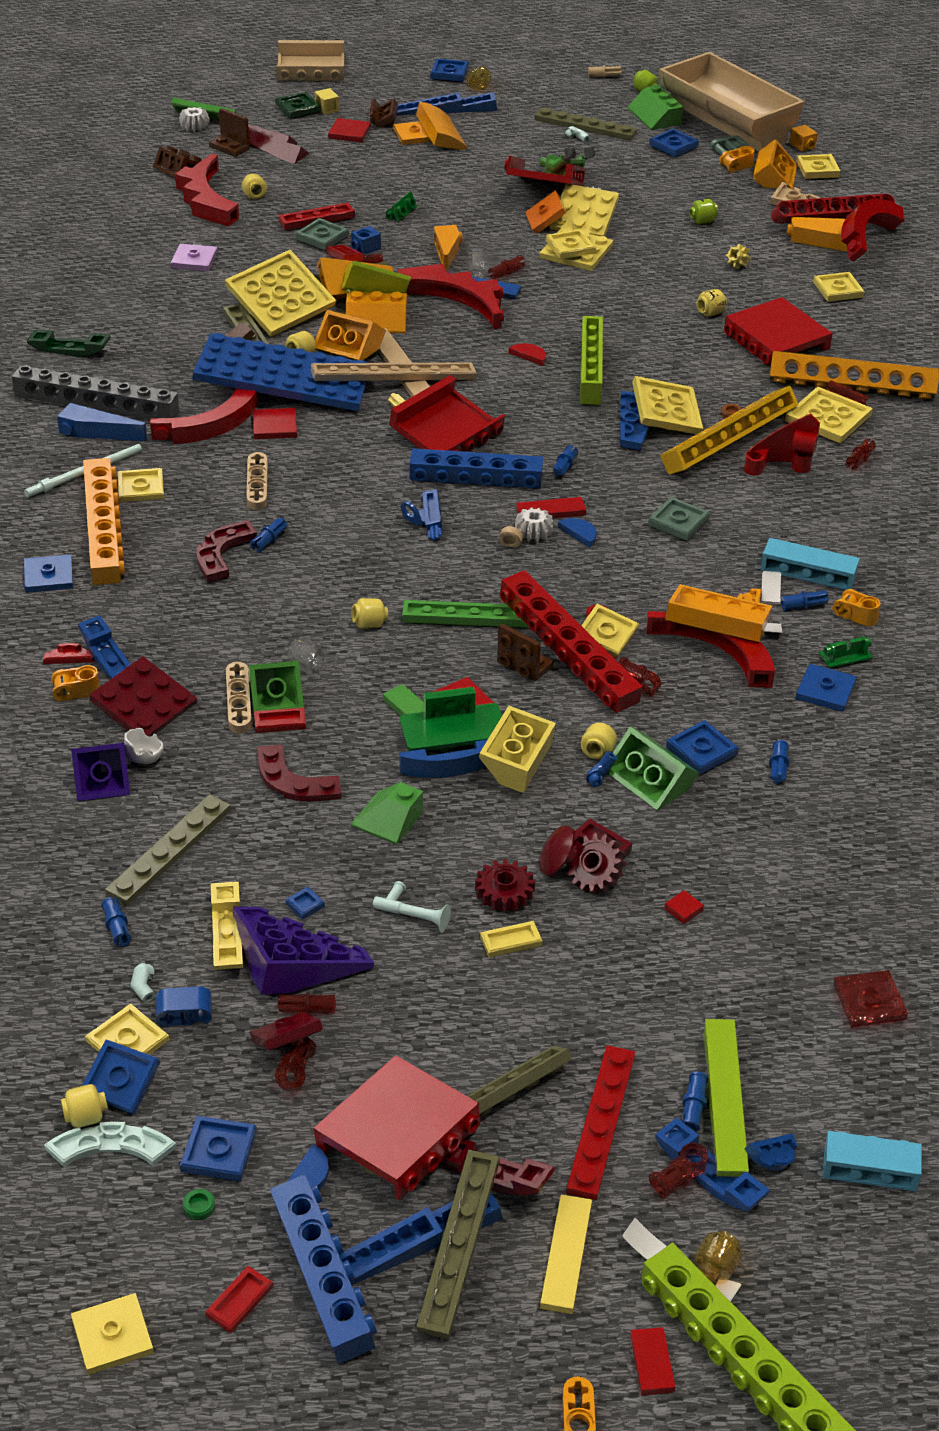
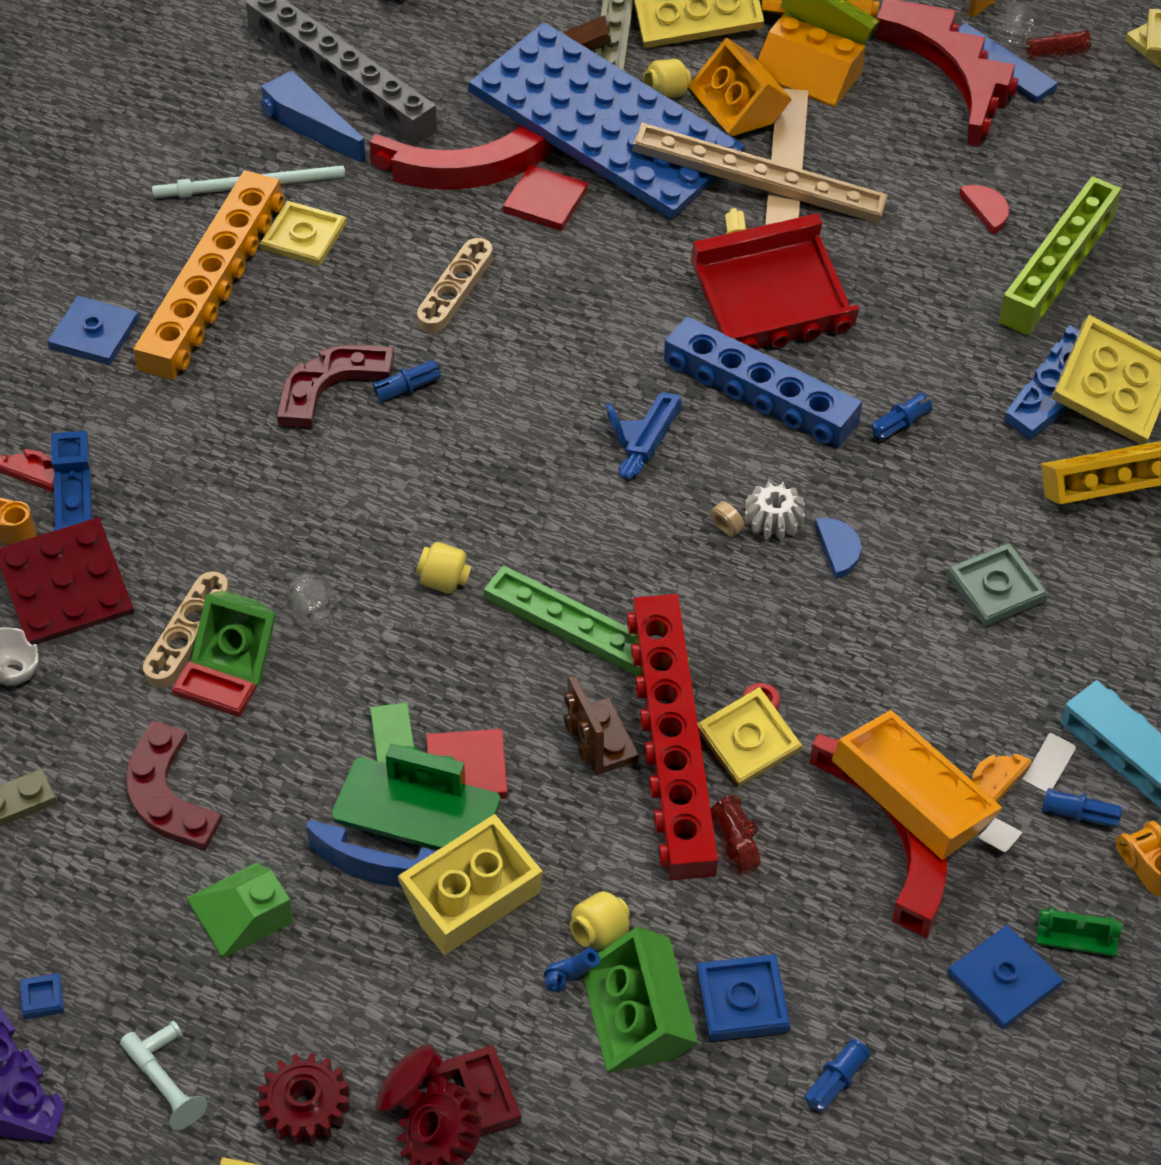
camera: 30 degrees right, 10 degrees up
(556, 507) = (828, 491): red tile -> none

